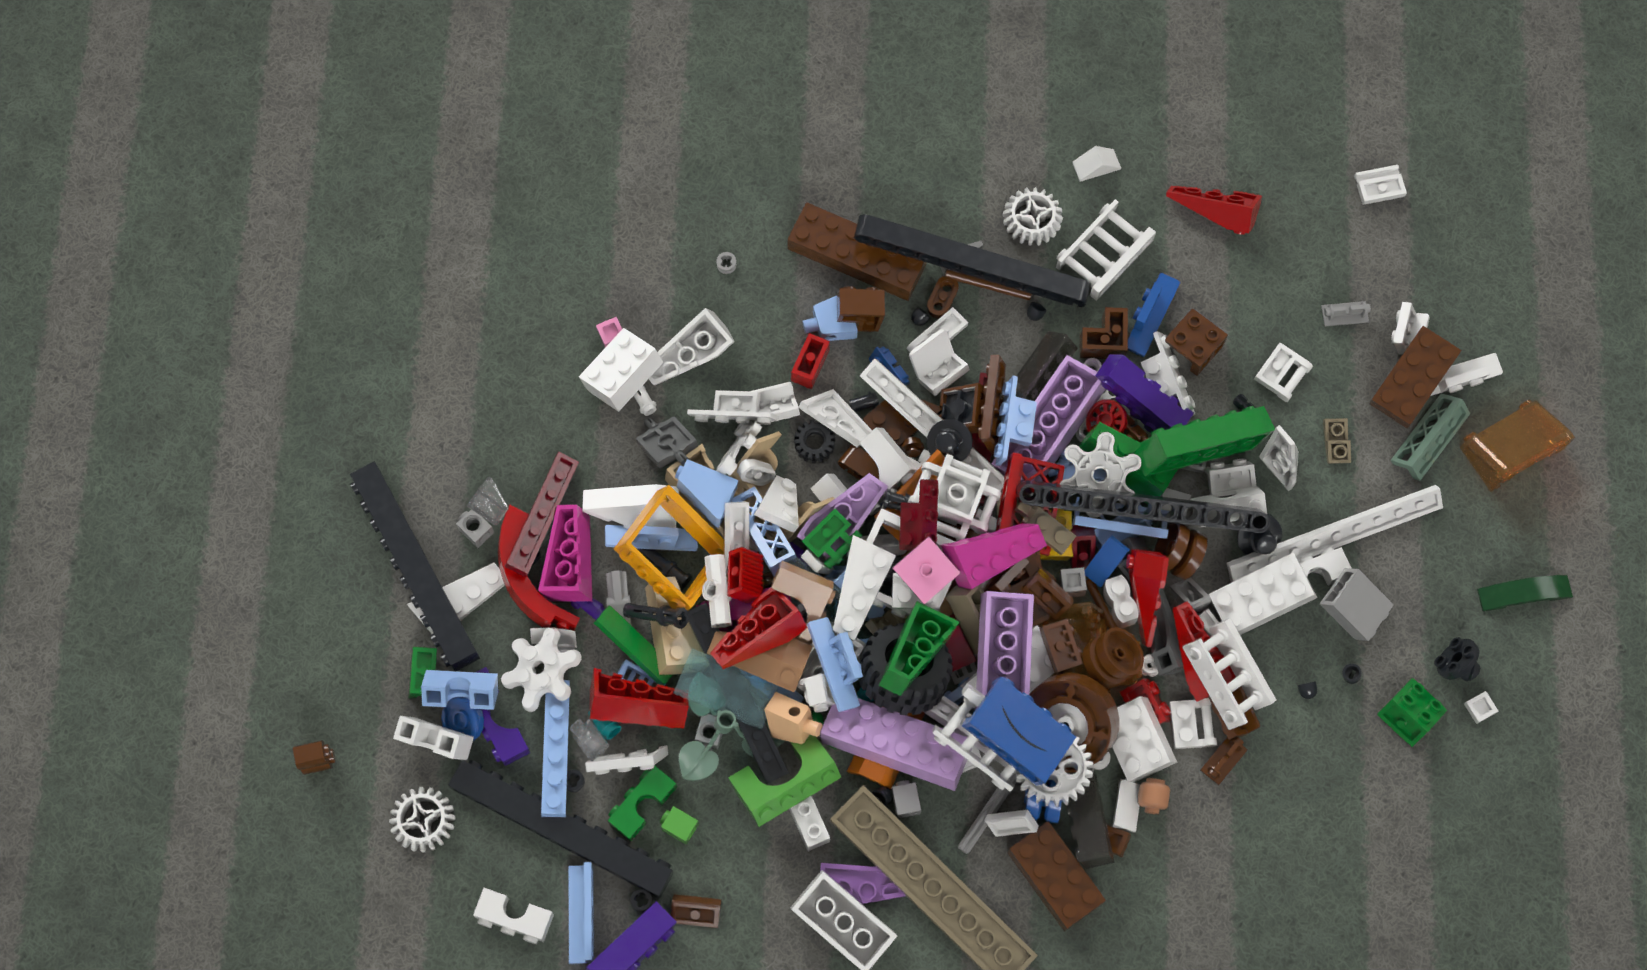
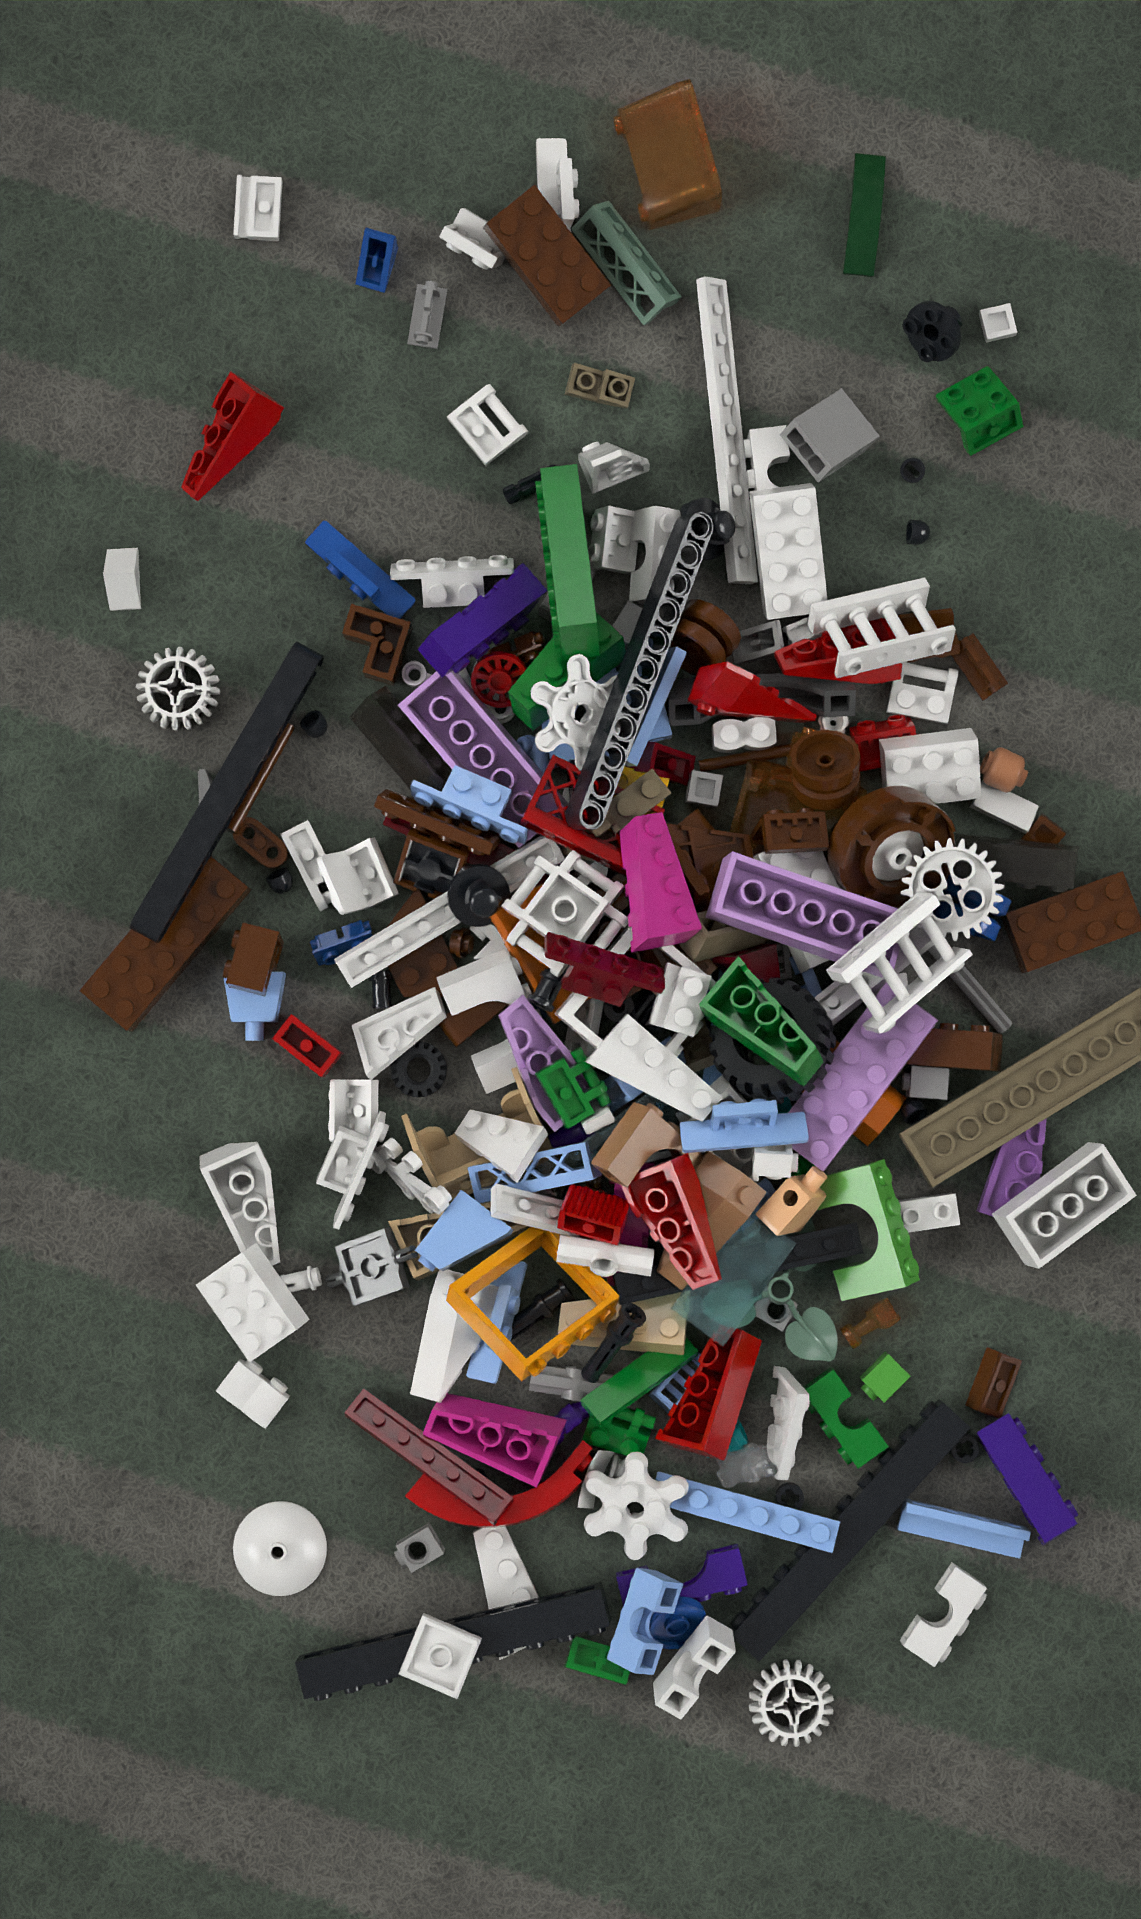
camera: 70 degrees left, 15 degrees up
(313, 757) = (678, 1827): reddish brown brick -> none
(402, 553) = (440, 1656): none -> white plate
(452, 449) = (286, 1527): none -> white dish
(489, 502) = (392, 1523): clear slope -> none
(557, 388) = (253, 1392): none -> white brick
(590, 645) = (621, 1435): none -> green plate
(608, 330) = (189, 1302): bright pink plate -> none
(724, 810) = (879, 1315): none -> clear orange leg
(726, 255) = (133, 1110): light grey bush -> none
(756, 472) = (446, 1160): white plate -> none
(926, 570) = (663, 981): bright pink plate -> none
(938, 816) = (960, 1048): none -> reddish brown wedge
(1011, 823) = (995, 959): white tile -> none
(1020, 731) = (908, 920): blue panel -> none
(1048, 594) = (720, 827): reddish brown slope -> none
(1106, 561) = (689, 737): blue slope -> none
(1112, 269) = (281, 605): white fence -> none
(1197, 340) = (415, 526): reddish brown bracket -> none
(1372, 269) = (376, 259): none -> blue slope

